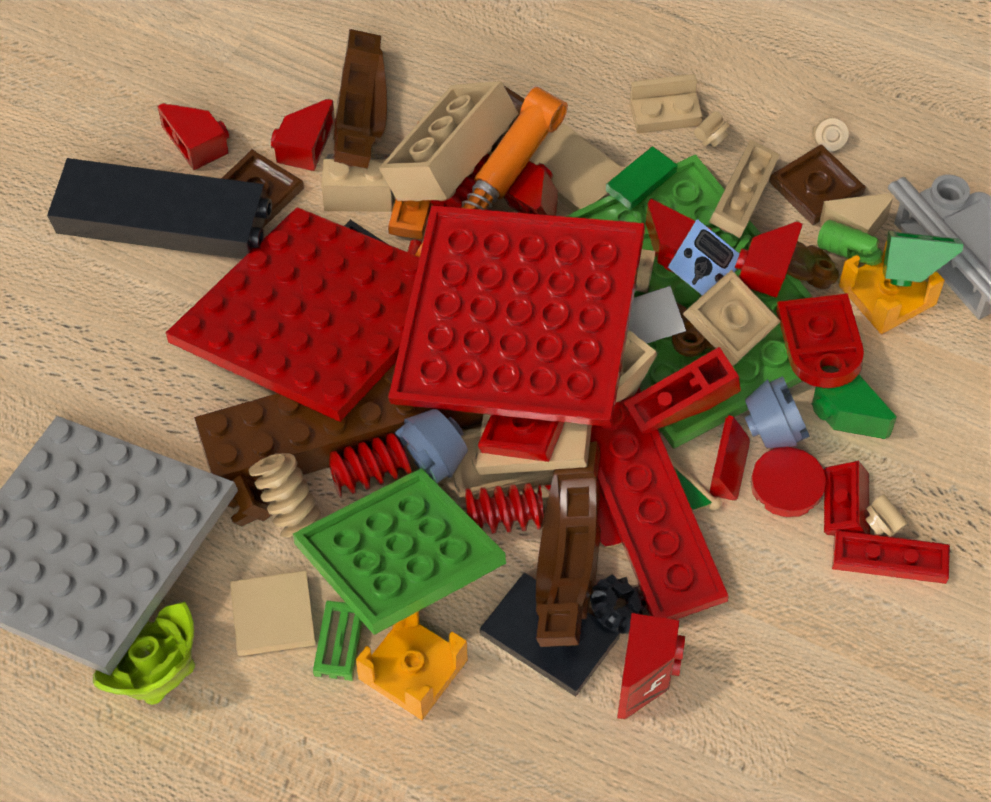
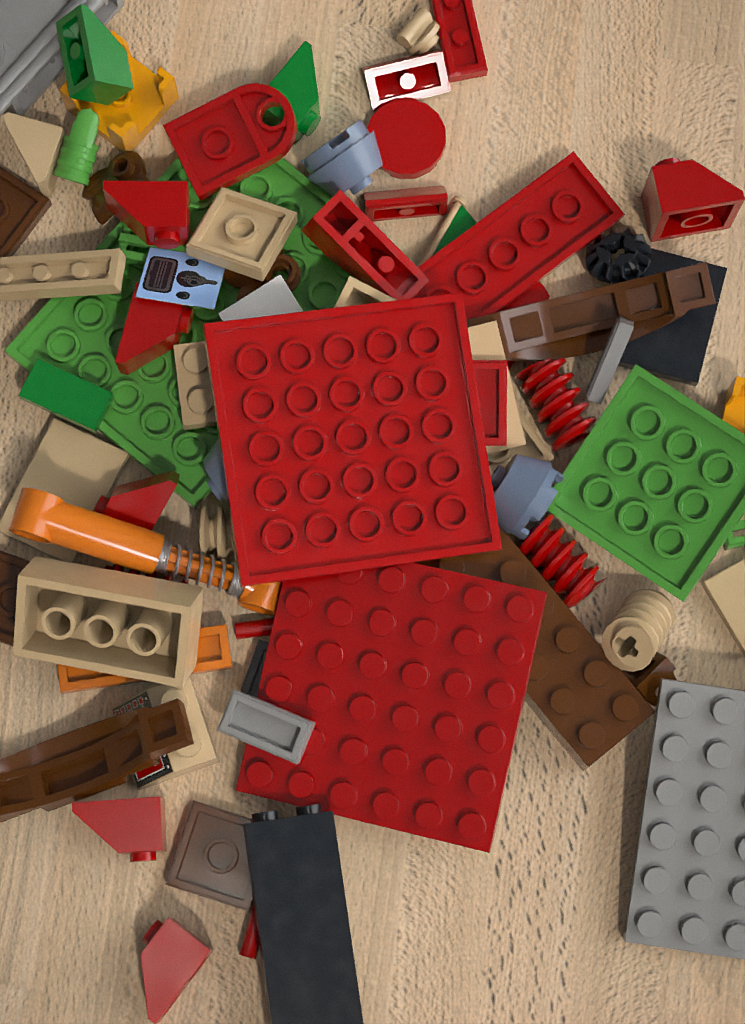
camera: 110 degrees left, 20 degrees up
(329, 224) = (266, 726): none -> light grey tile
(525, 554) = (609, 360): none -> light grey tile

